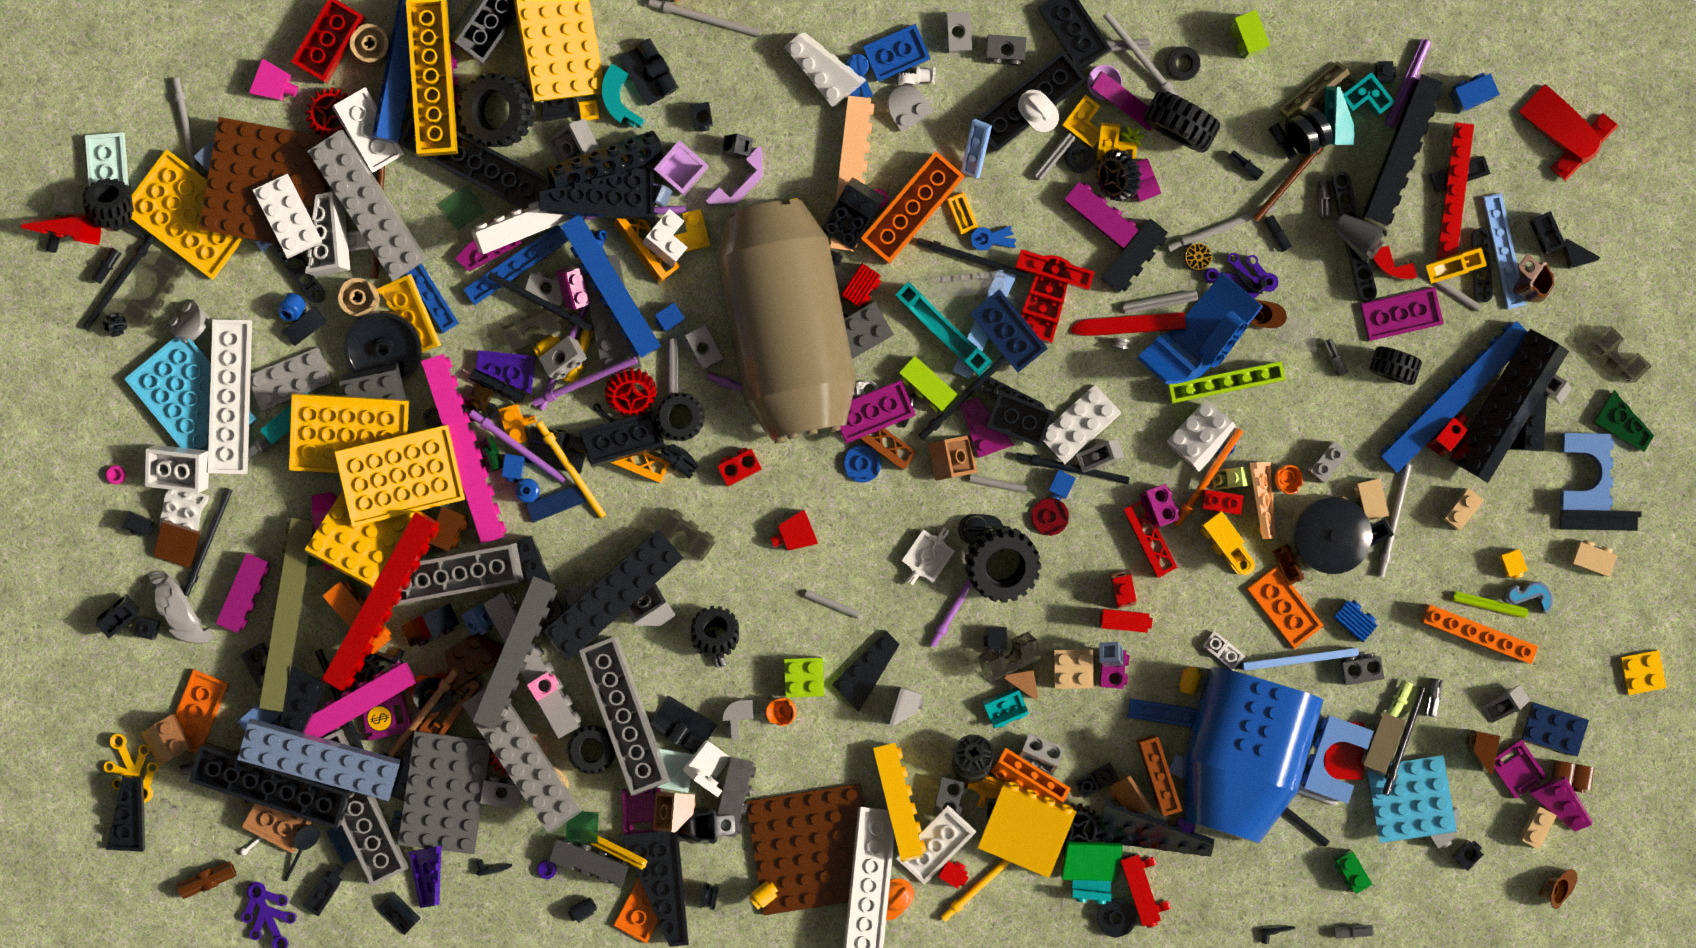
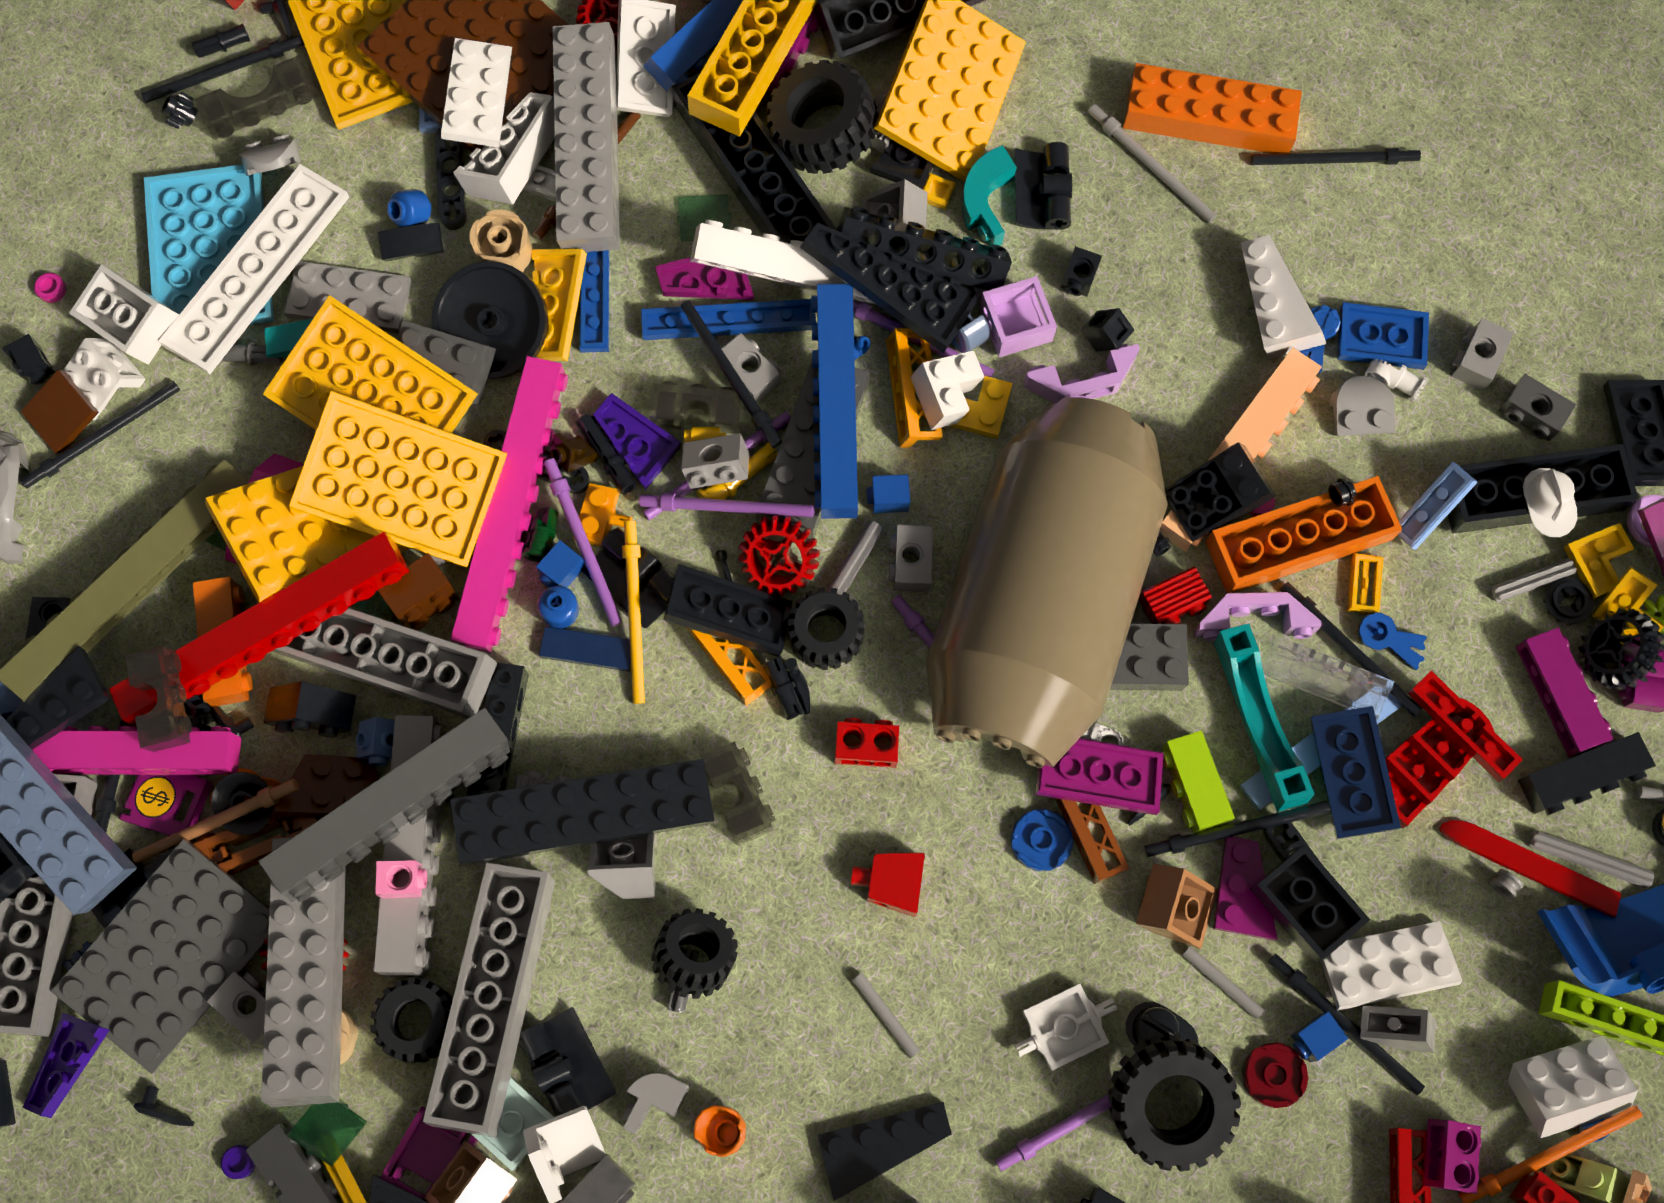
camera: 25 degrees right, 15 degrees down
(243, 592) = (97, 523): magenta brick -> none
(346, 655) = (167, 722): none -> clear smoke arch
(573, 287) = (785, 377): magenta brick -> none
(804, 677) = (784, 1098): lime brick -> none
(920, 175) = (1342, 492): none -> black plate
(934, 258) = (1296, 618): none -> lavender slope

